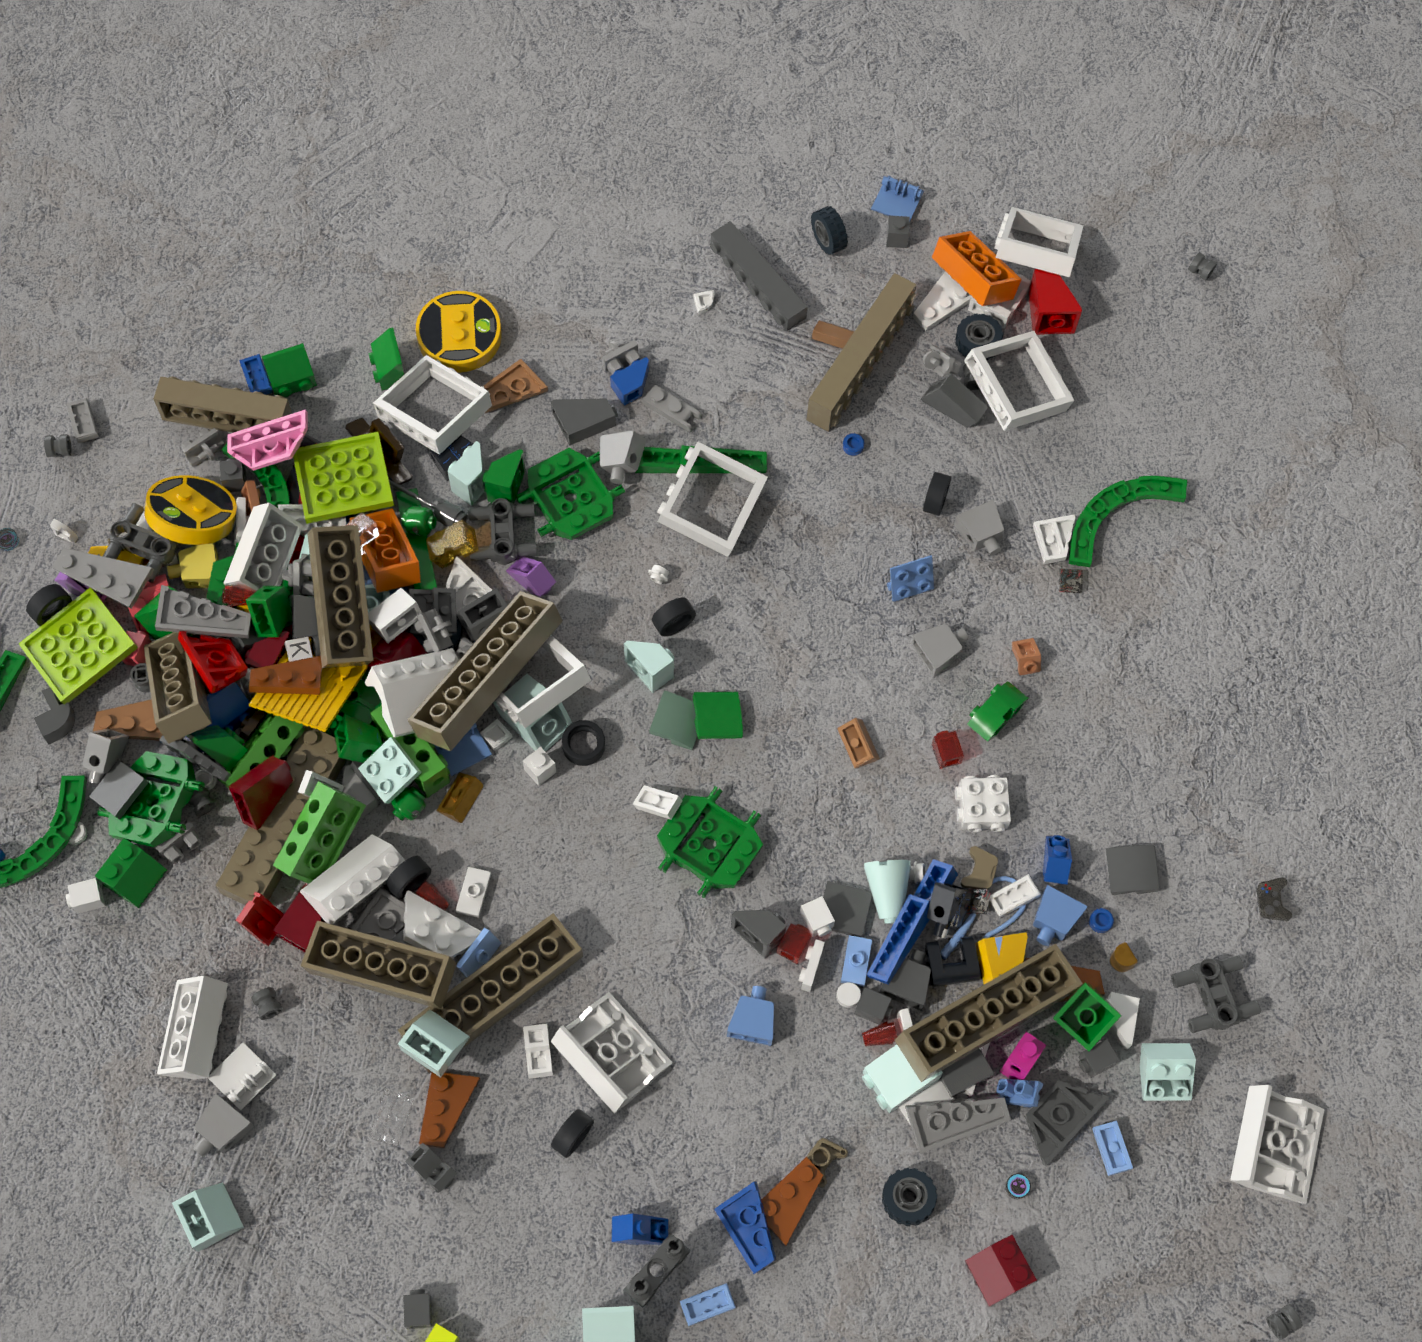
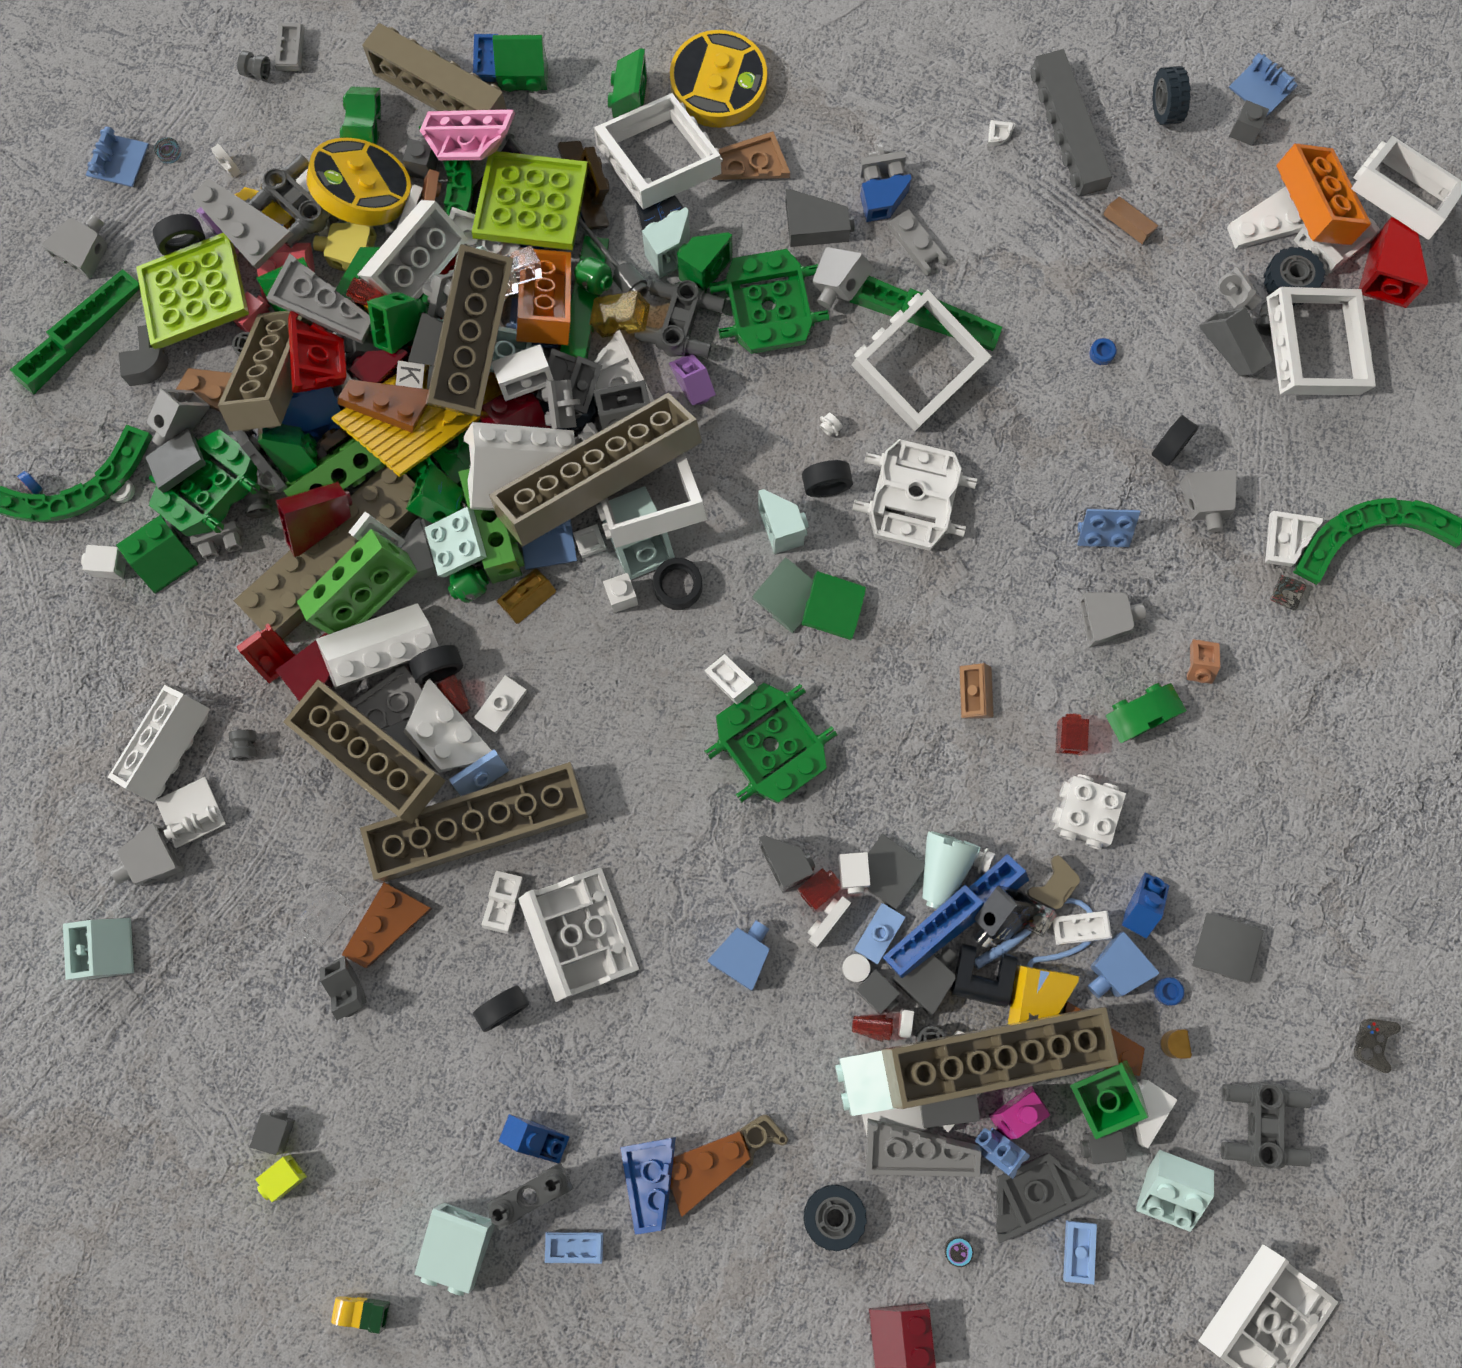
camera: 25 degrees right, 10 degrees up
(168, 454) = (361, 114): none -> green brick
(203, 447) = (401, 117): light grey hips -> none
(433, 1042) = (387, 858): light aqua slope -> none
(762, 585) = (911, 465): none -> white piece
(861, 352) = (1153, 248): dark tan brick -> none

